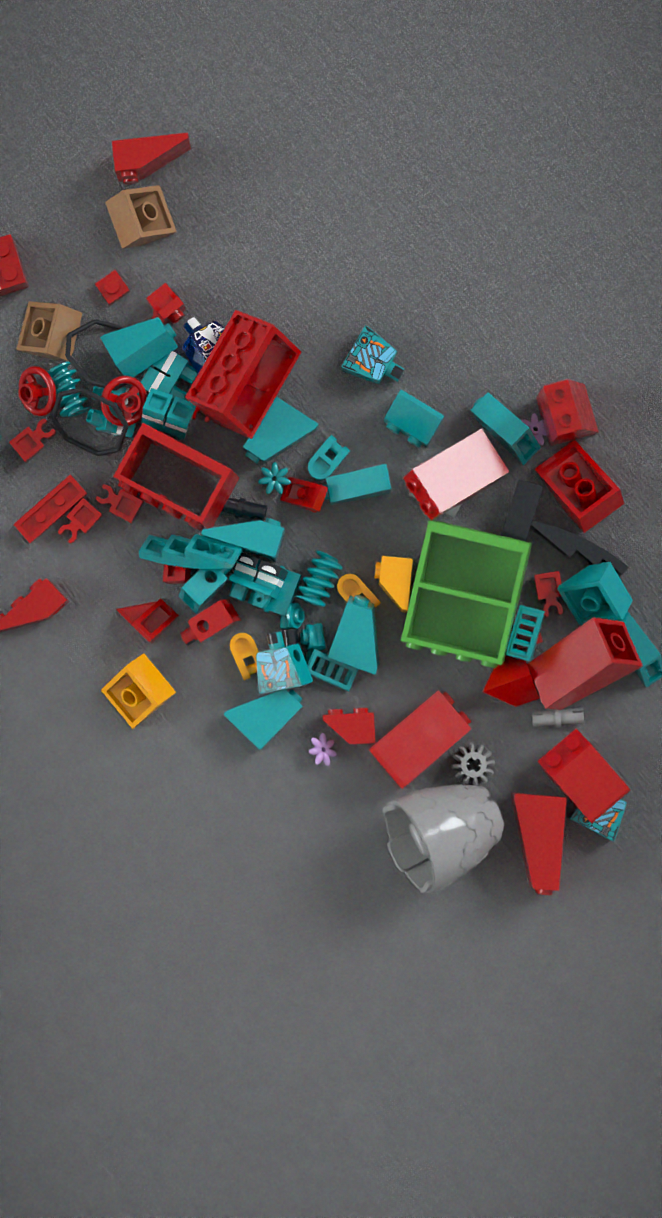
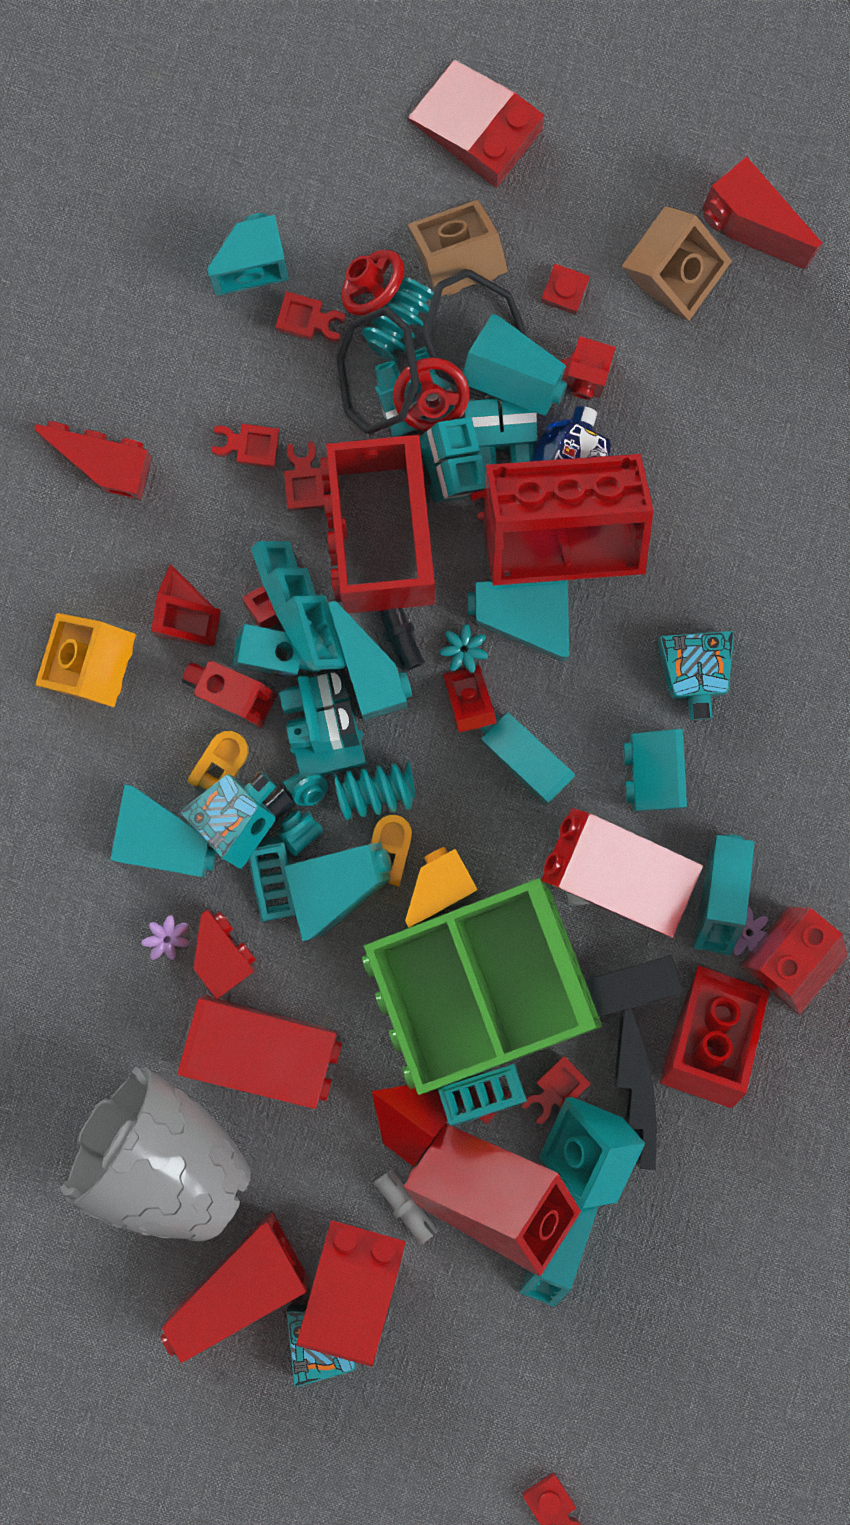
camera: 55 degrees right, 0 degrees up
(50, 509) = (238, 398): red plate -> none
(322, 466) = (520, 693): teal plate -> none
(474, 756) = (261, 1144): light grey gear -> none

